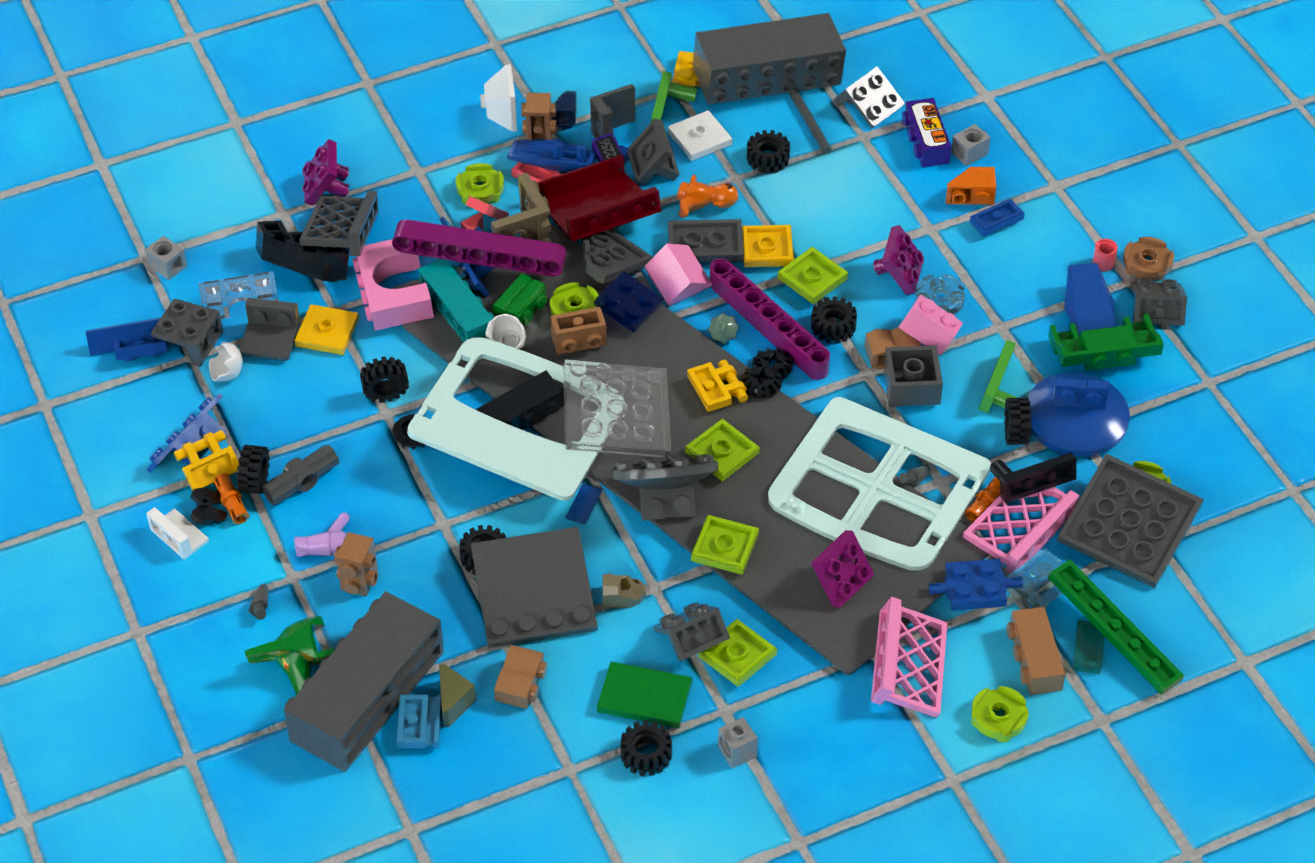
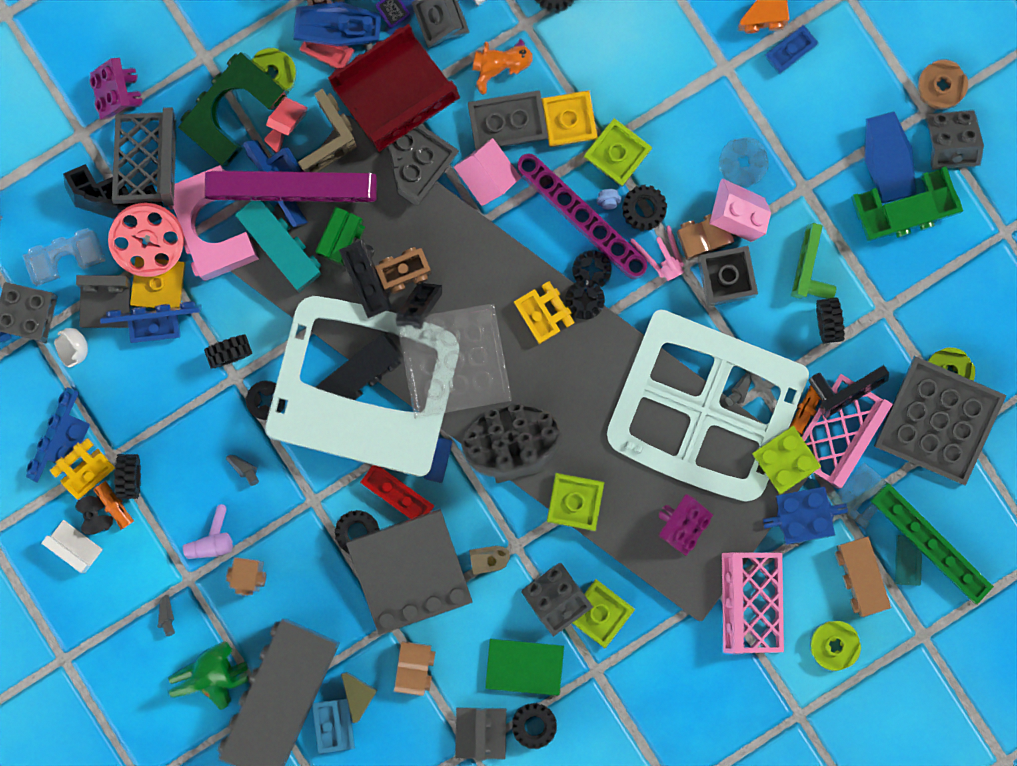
camera: 10 degrees left, 35 degrees up
(300, 474) = (171, 469): dark grey piece -> none
(313, 351) = (152, 324): none -> blue bracket
(326, 290) = (142, 228): none -> coral wedge
(376, 485) = (244, 469): none -> dark grey bar
(448, 173) = (202, 122): none -> dark green arch
(506, 330) = (334, 282): white hair -> none
(526, 515) = (396, 492): none -> red plate
(538, 326) = (365, 278): none -> black piece
(570, 293) = (397, 216): lime plate -> none
(584, 749) = (480, 733): none -> dark grey bracket
(588, 352) = (418, 305): none -> black plate
(628, 301) = (445, 221): clear blue plate -> none
(723, 328) = (539, 234): sand green piece -> none
(726, 446) = (559, 391): lime plate -> none
(737, 742) = (613, 712): light grey brick -> none
(798, 308) = (608, 199): none -> light blue plate
(855, 366) = (671, 266): none -> bright pink plant
(901, 260) = (703, 130): magenta plate -> none
(959, 531) = (786, 460): none -> lime plate
(1078, 414) = (884, 294): blue bracket -> none
(1105, 254) = (907, 82): coral beam -> none

